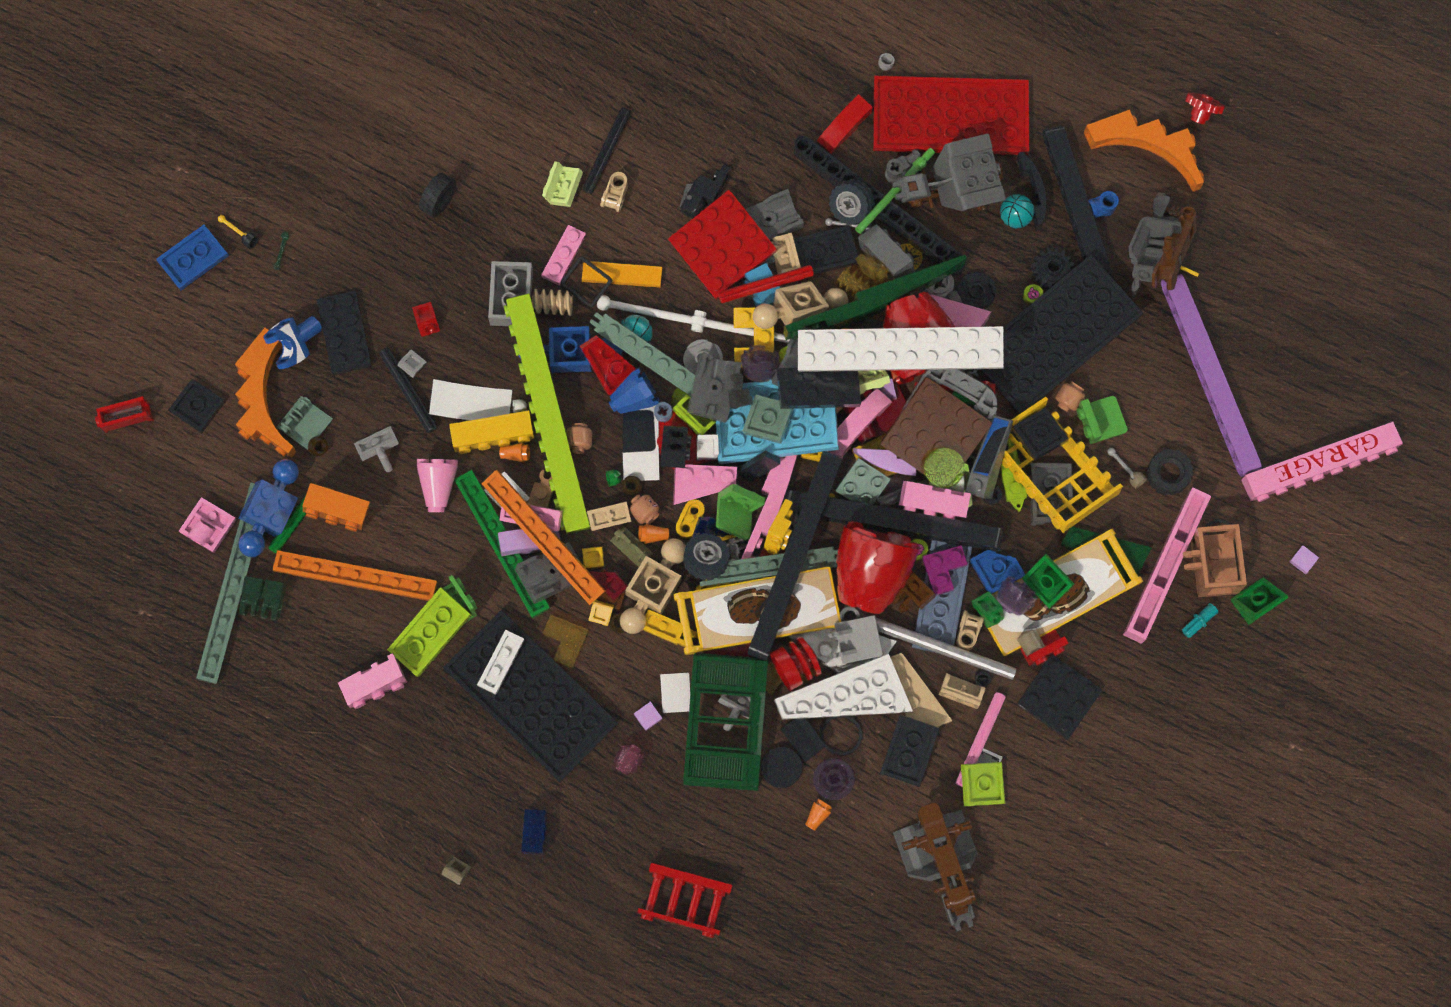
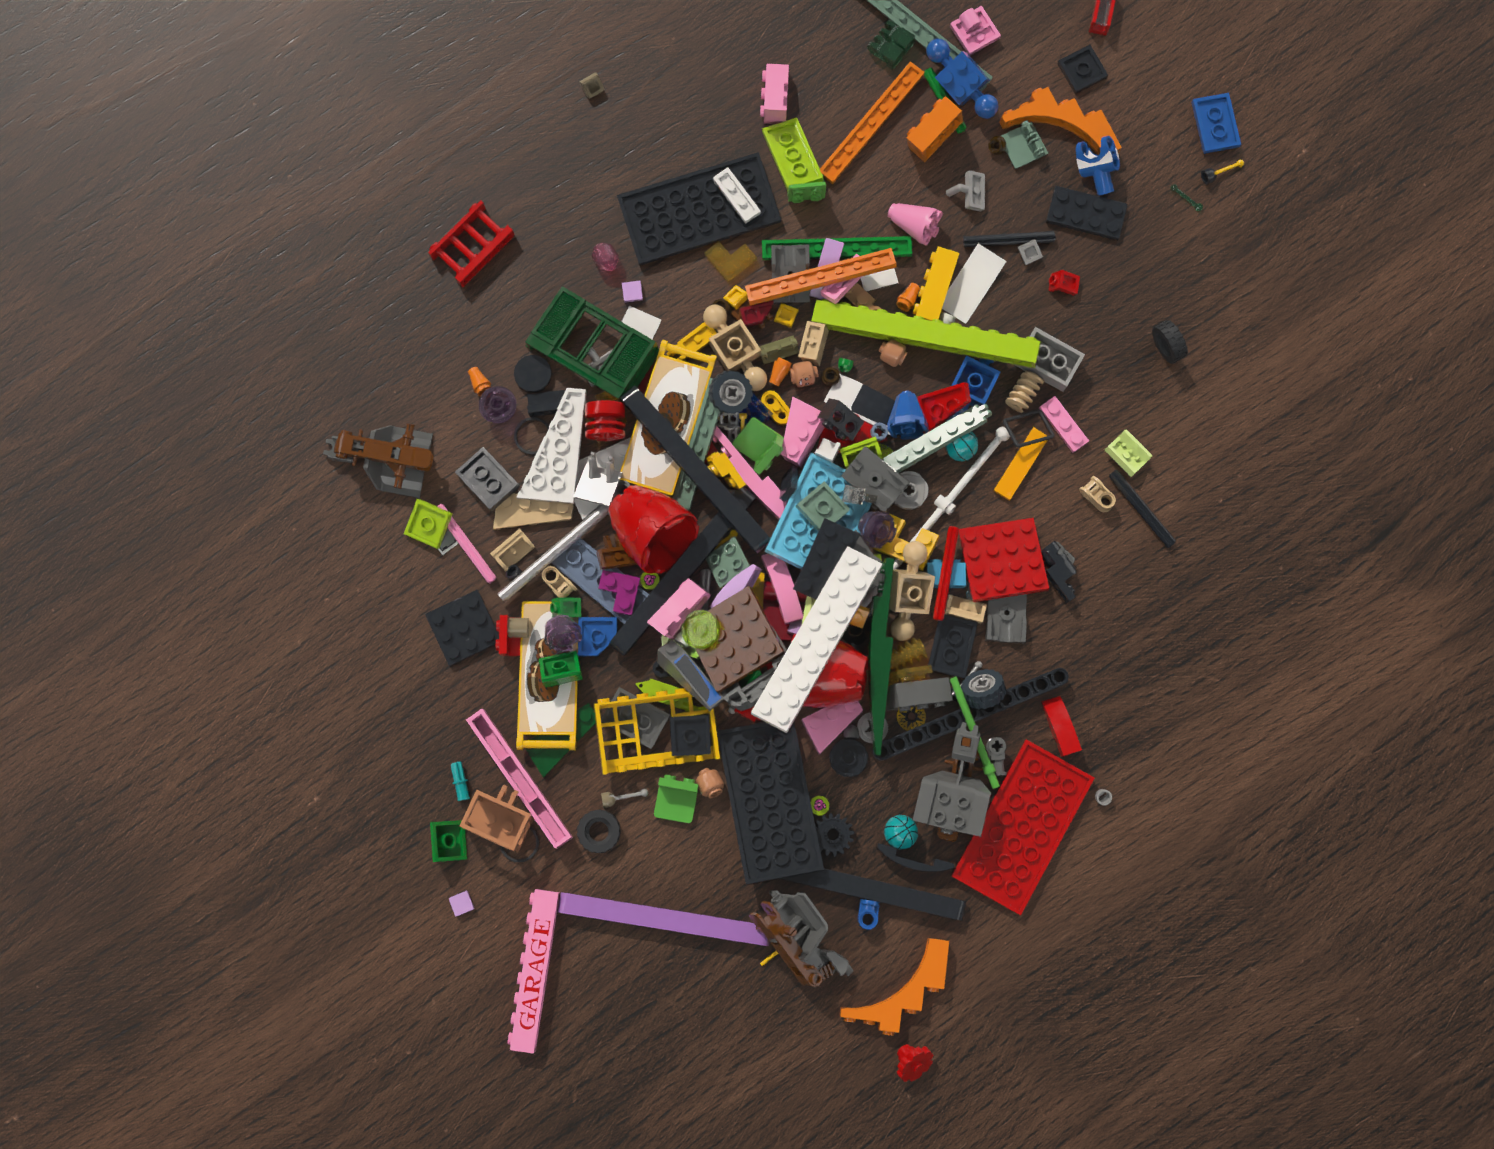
camera: 120 degrees right, 5 degrees up
(534, 832) = (588, 156): clear blue brick -> none

